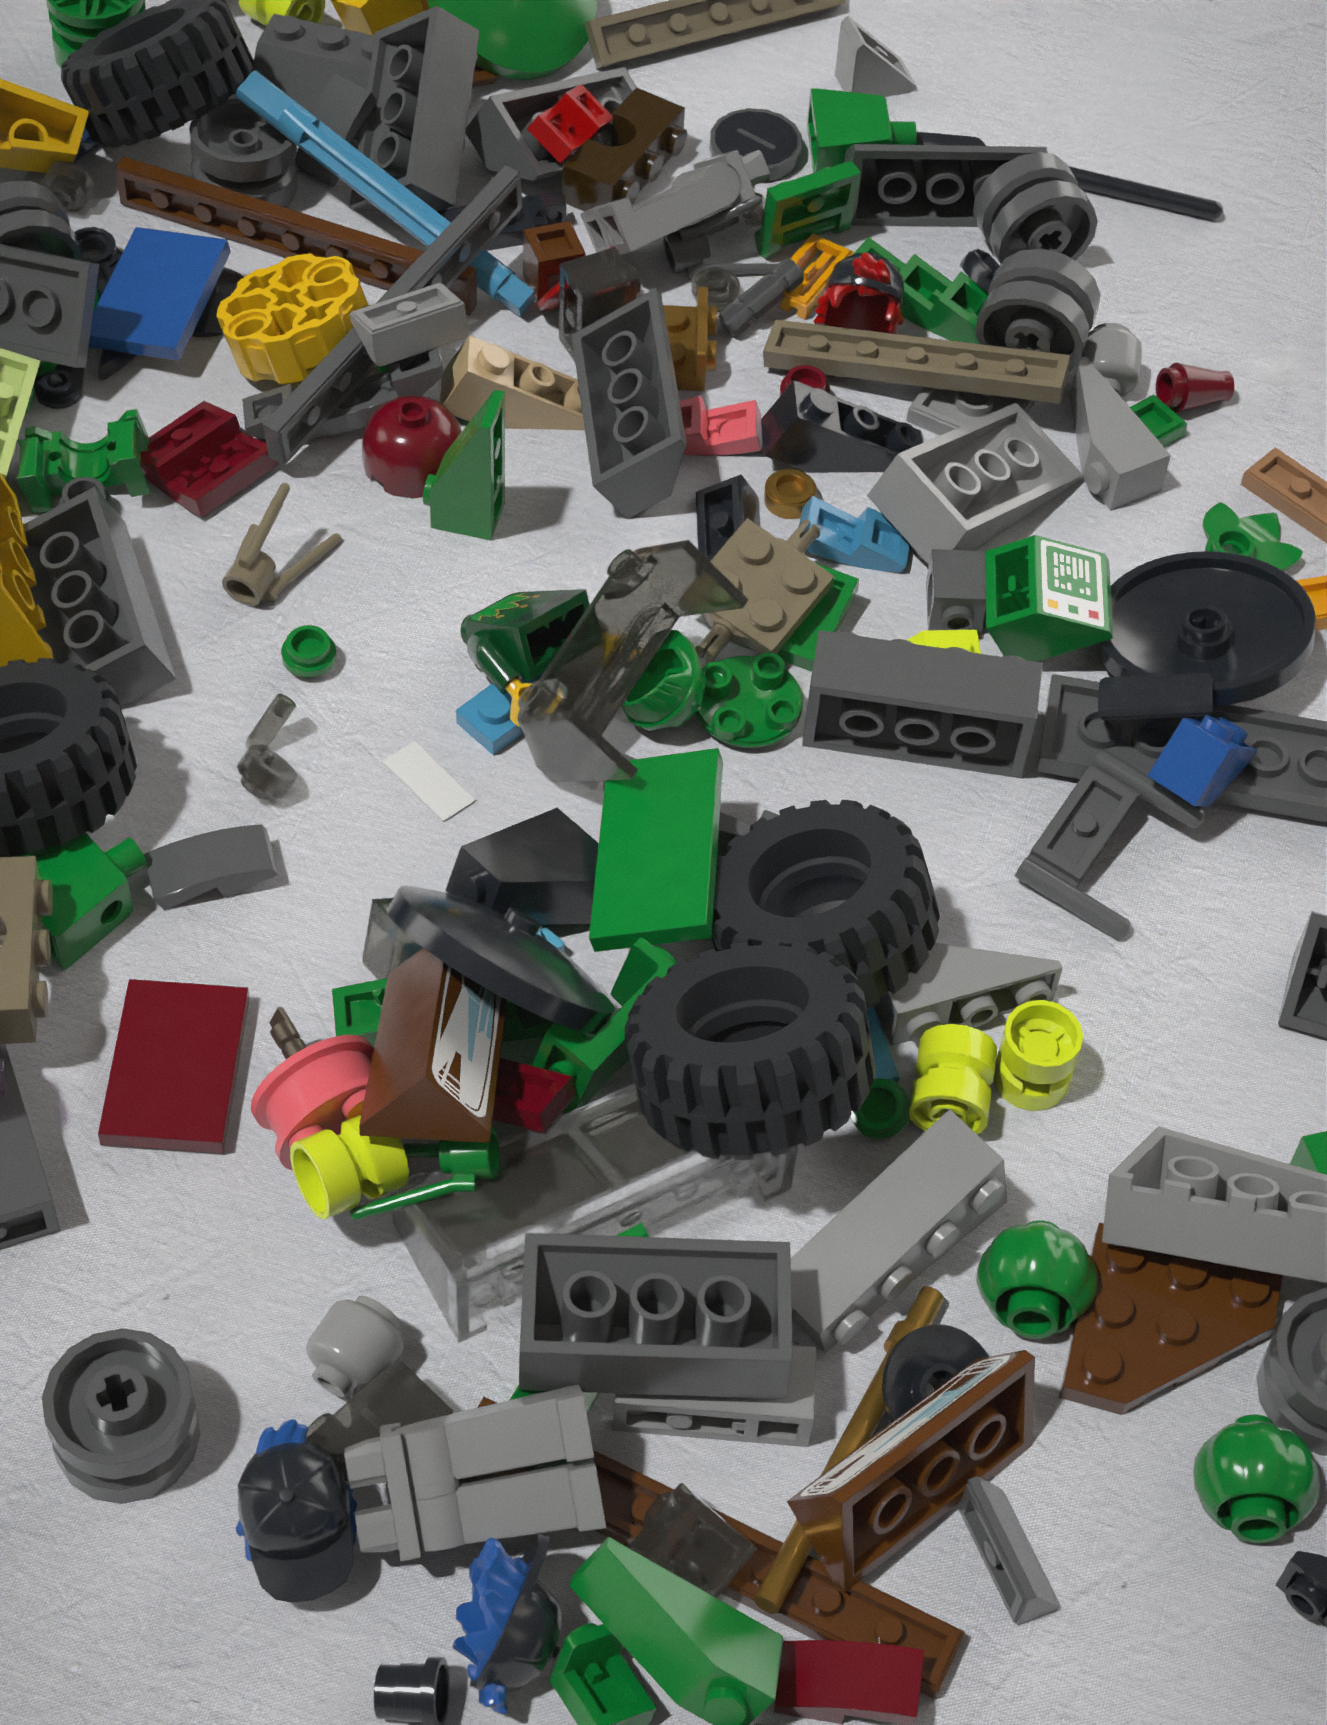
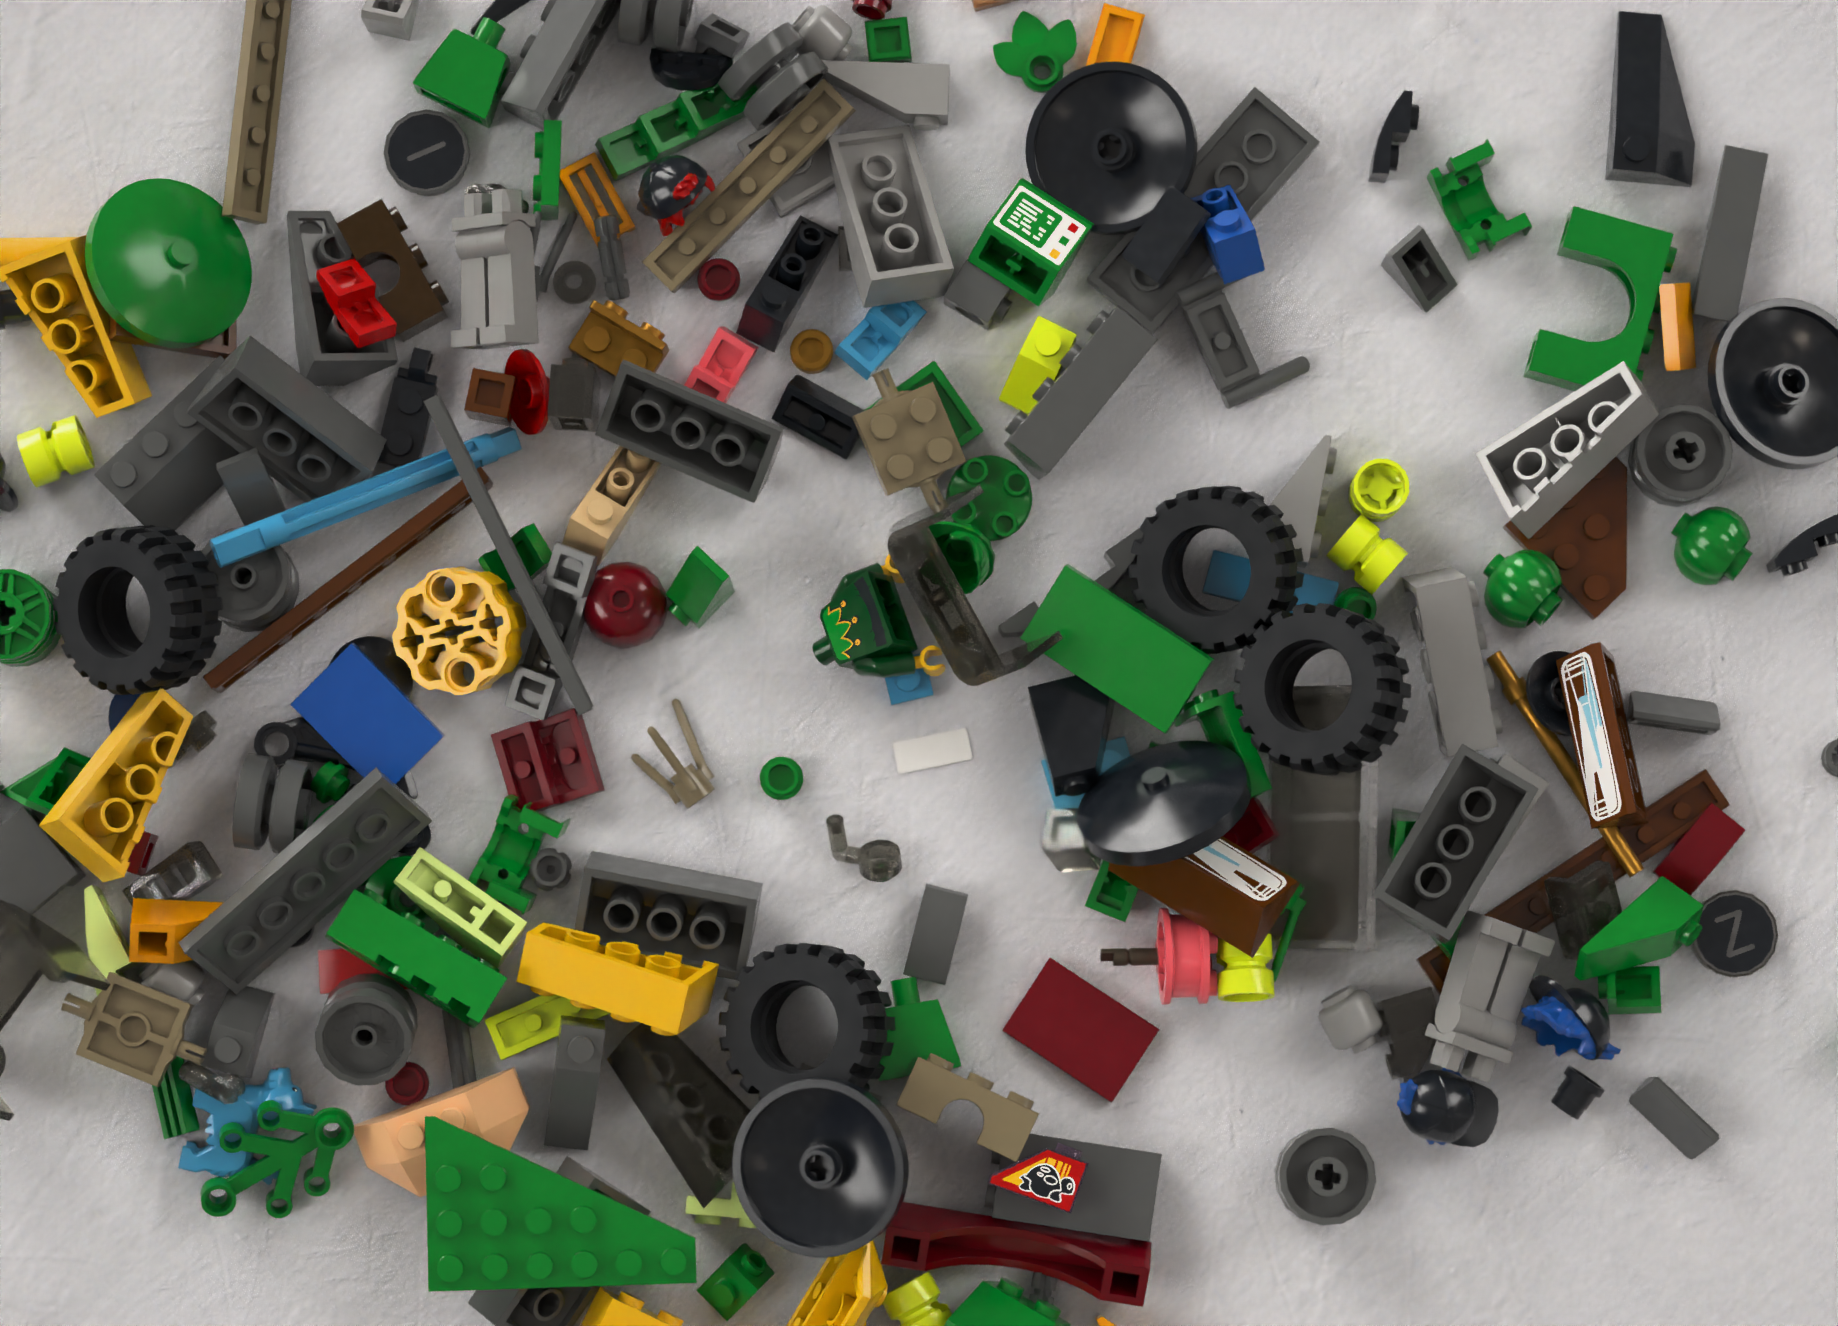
camera: 55 degrees left, 30 degrees up
(410, 324) = (543, 559): light grey slope -> none

